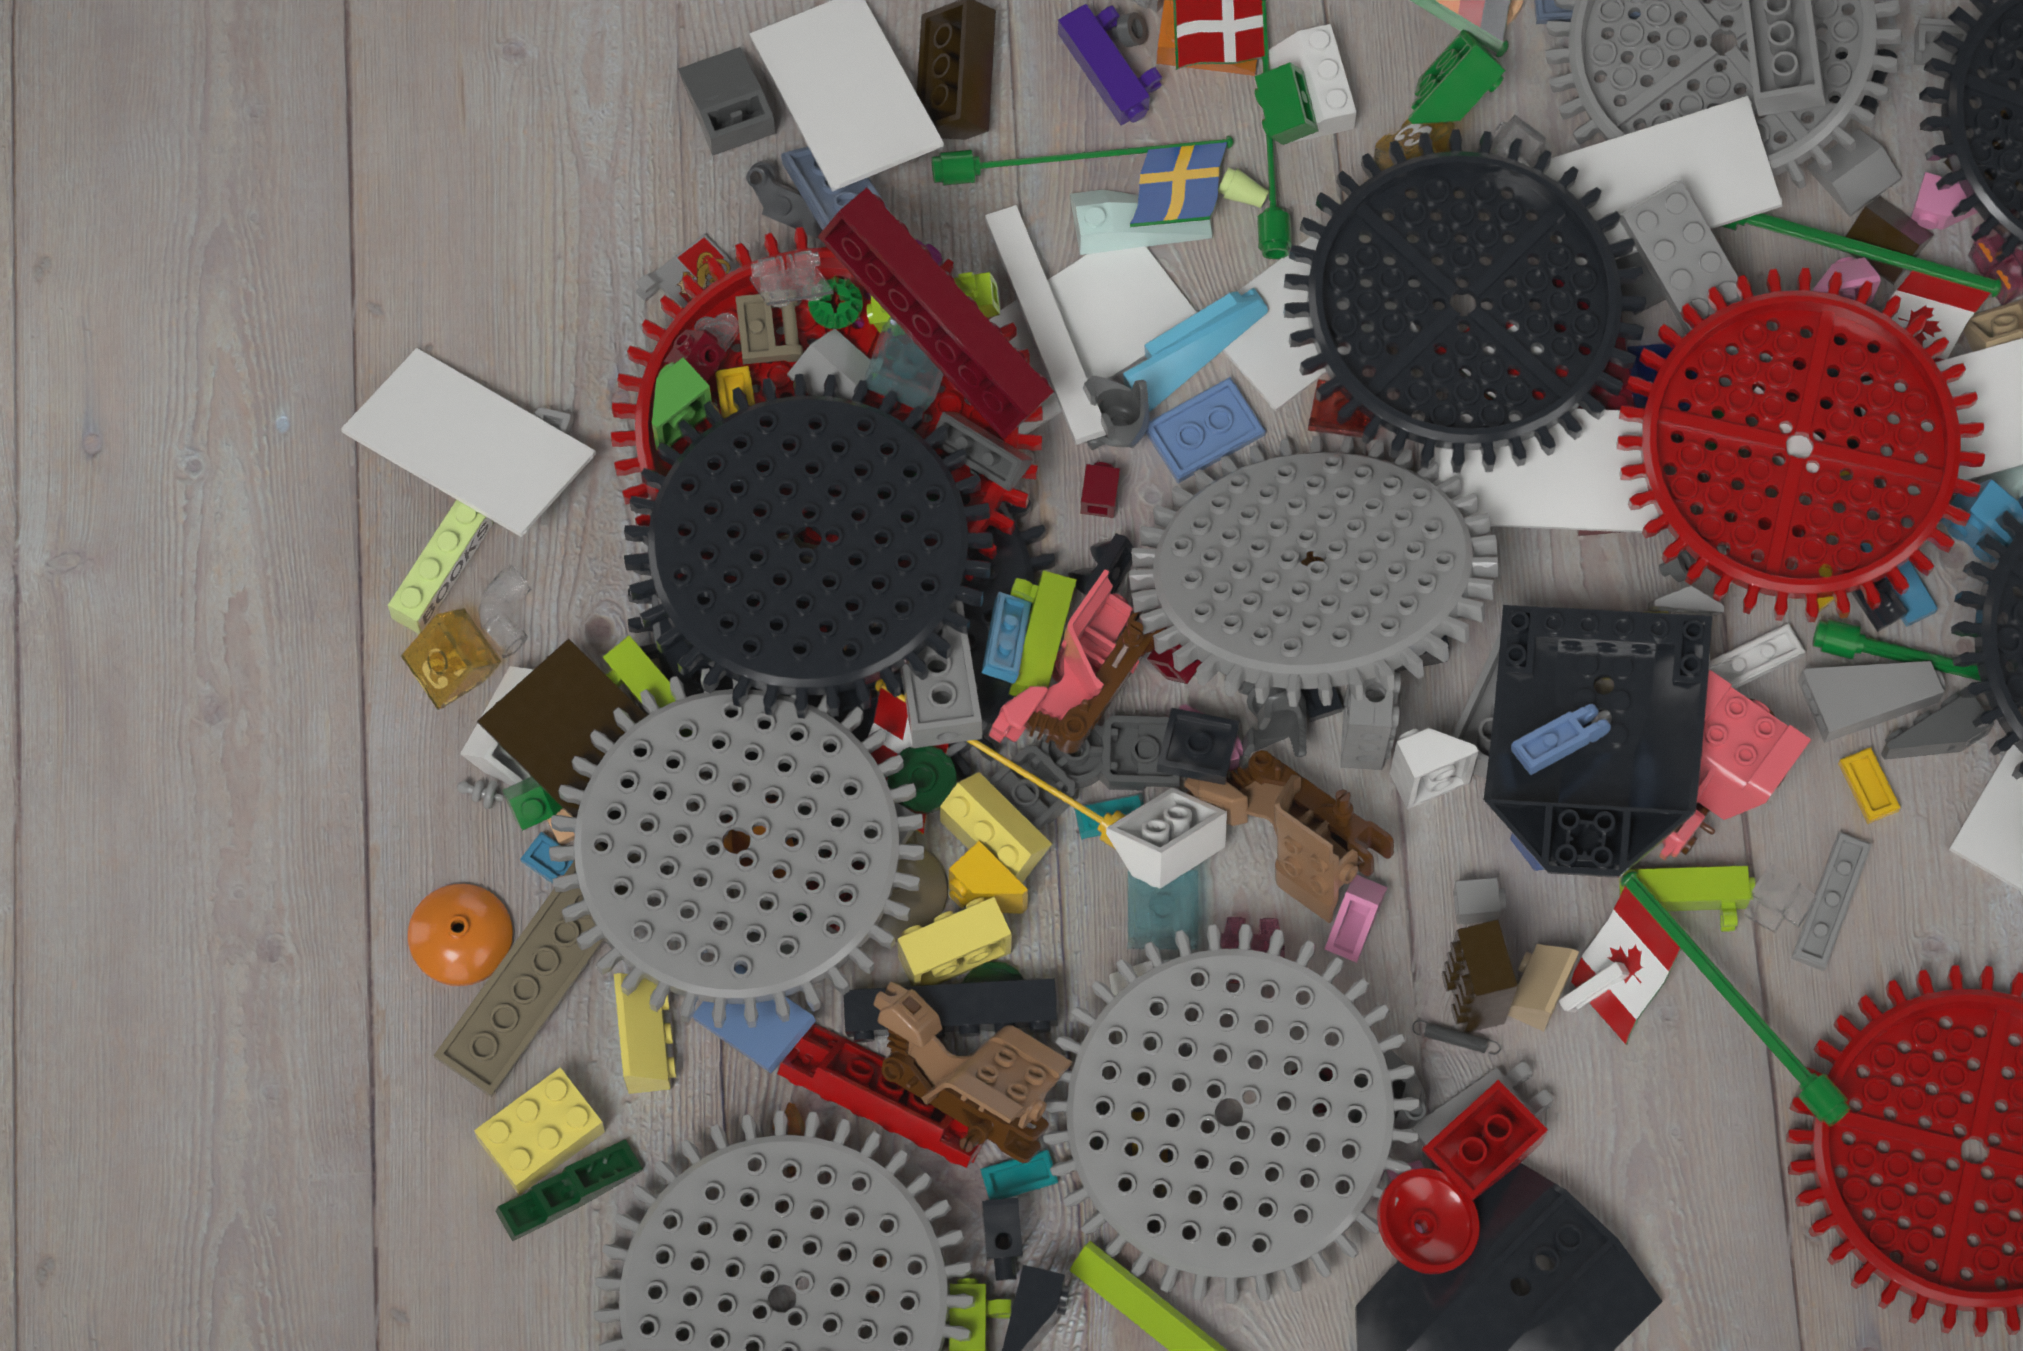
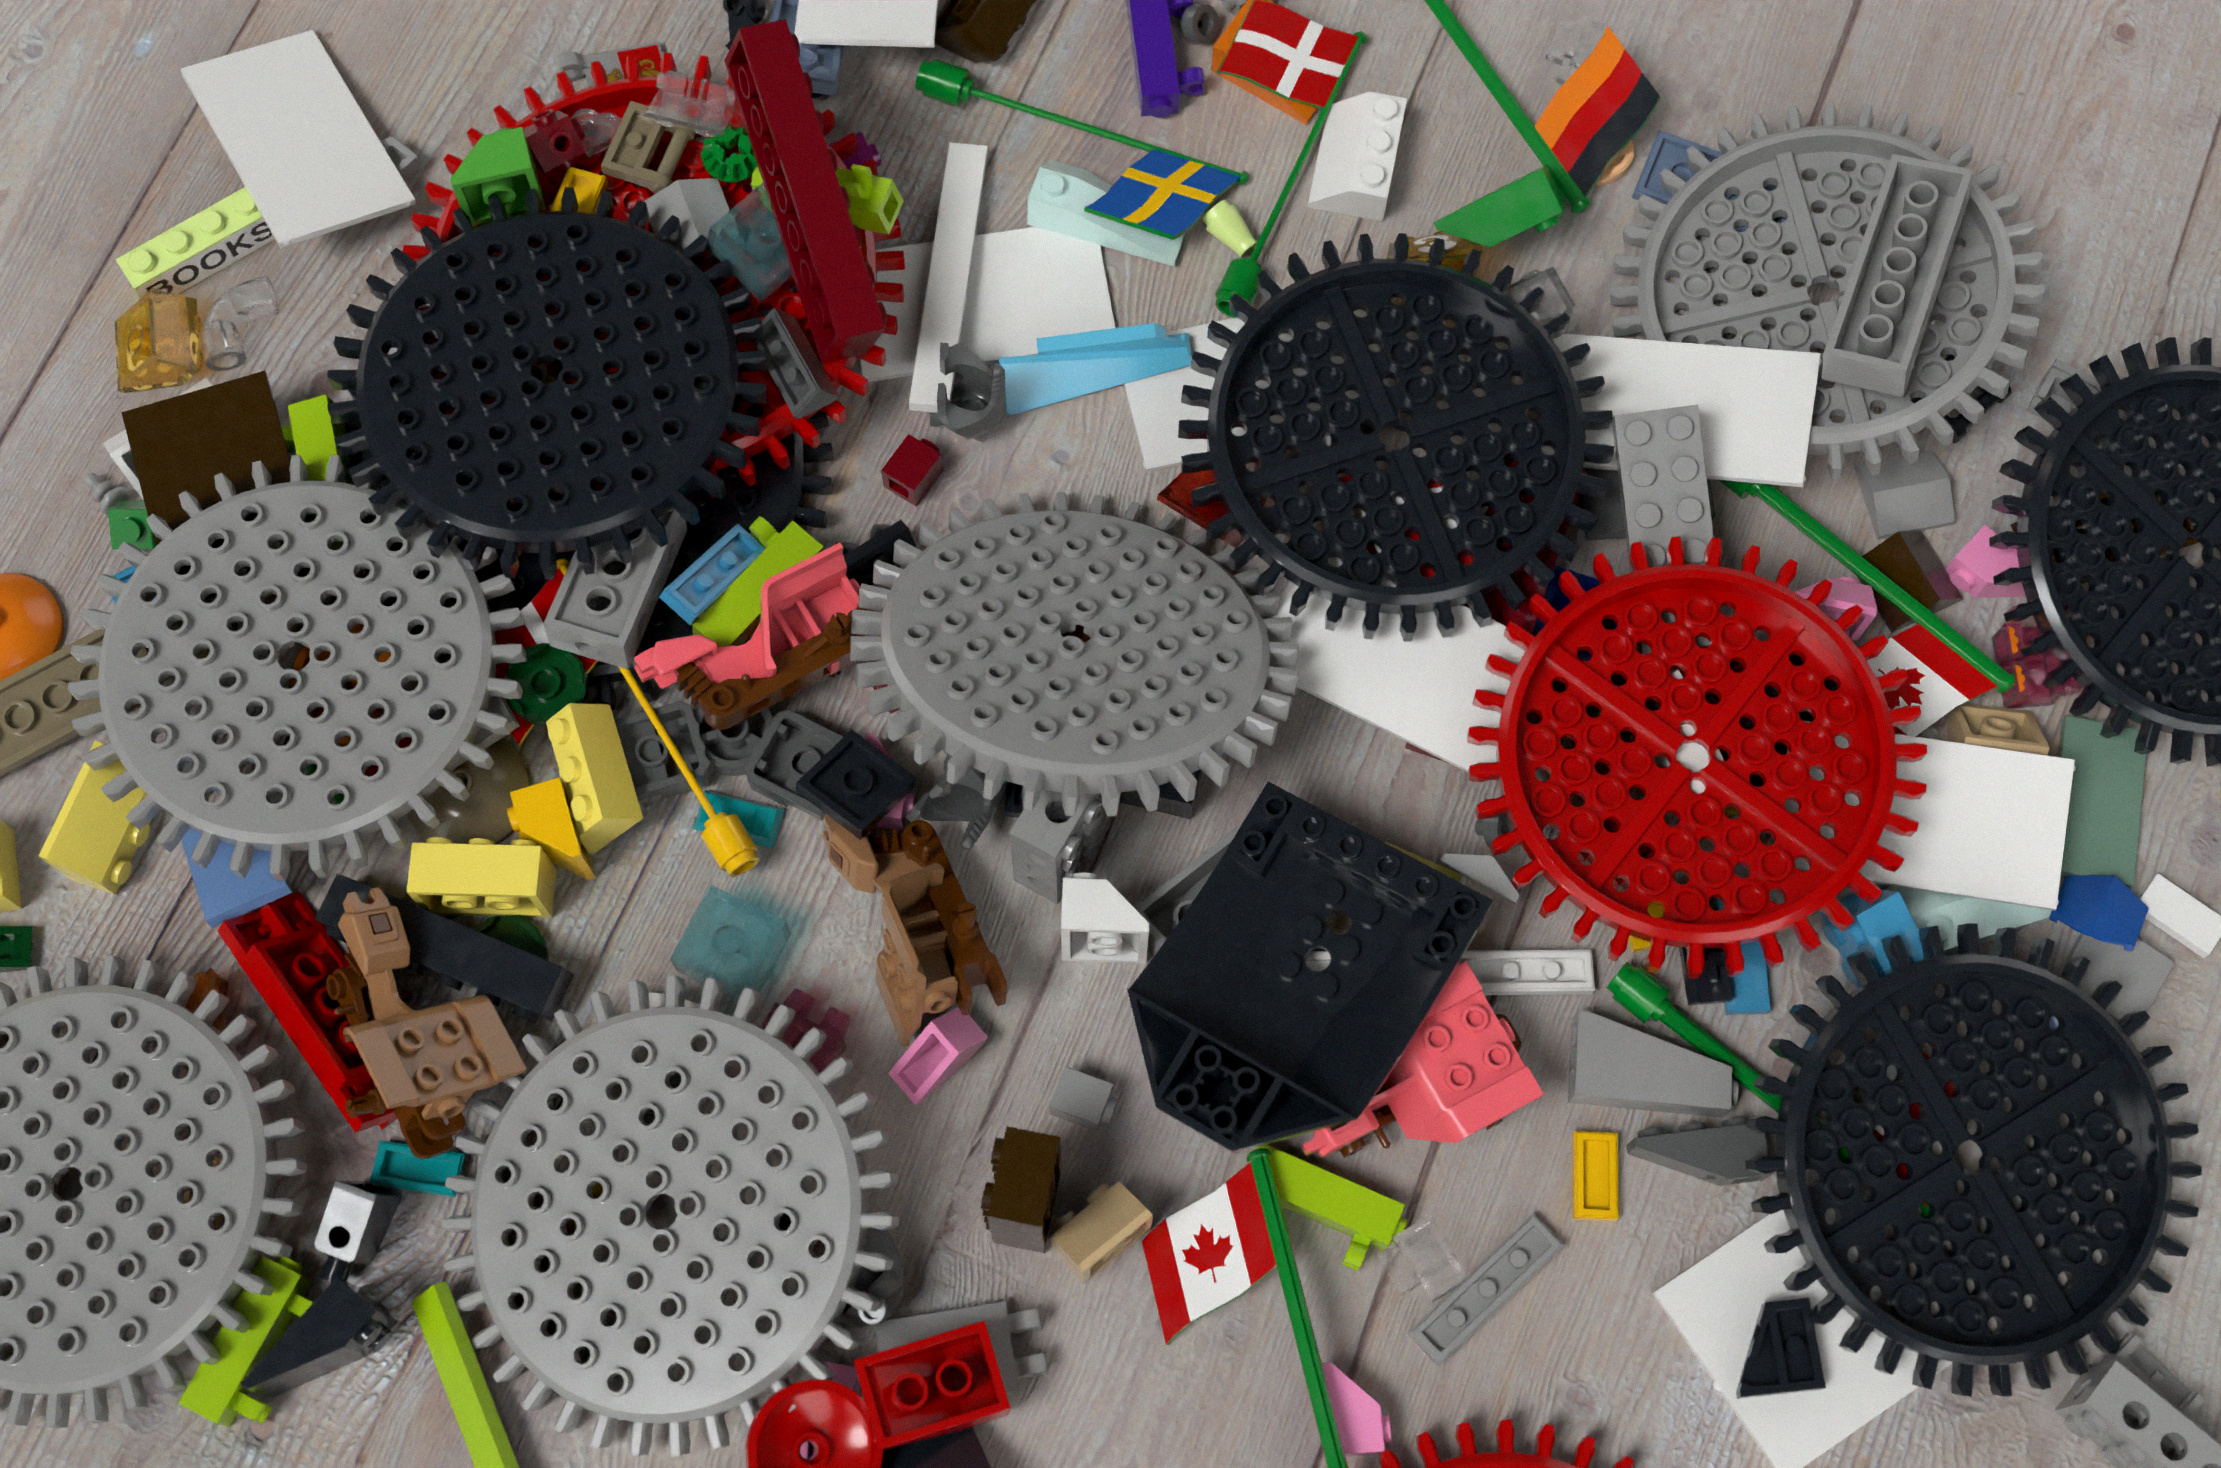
camera: 25 degrees right, 0 degrees up
(1168, 836) = (768, 868): white slope -> none
(1204, 430) = (1059, 456): medium blue tile -> none
(1285, 104) = (1317, 158): green brick -> none
(1456, 1037) = (979, 1243): dark grey piece -> none
(1559, 738) = (1253, 959): medium blue hinge -> none
(1594, 987) = (1159, 1262): white tile -> none
(1790, 1026) = (1357, 1415): none -> bright pink slope

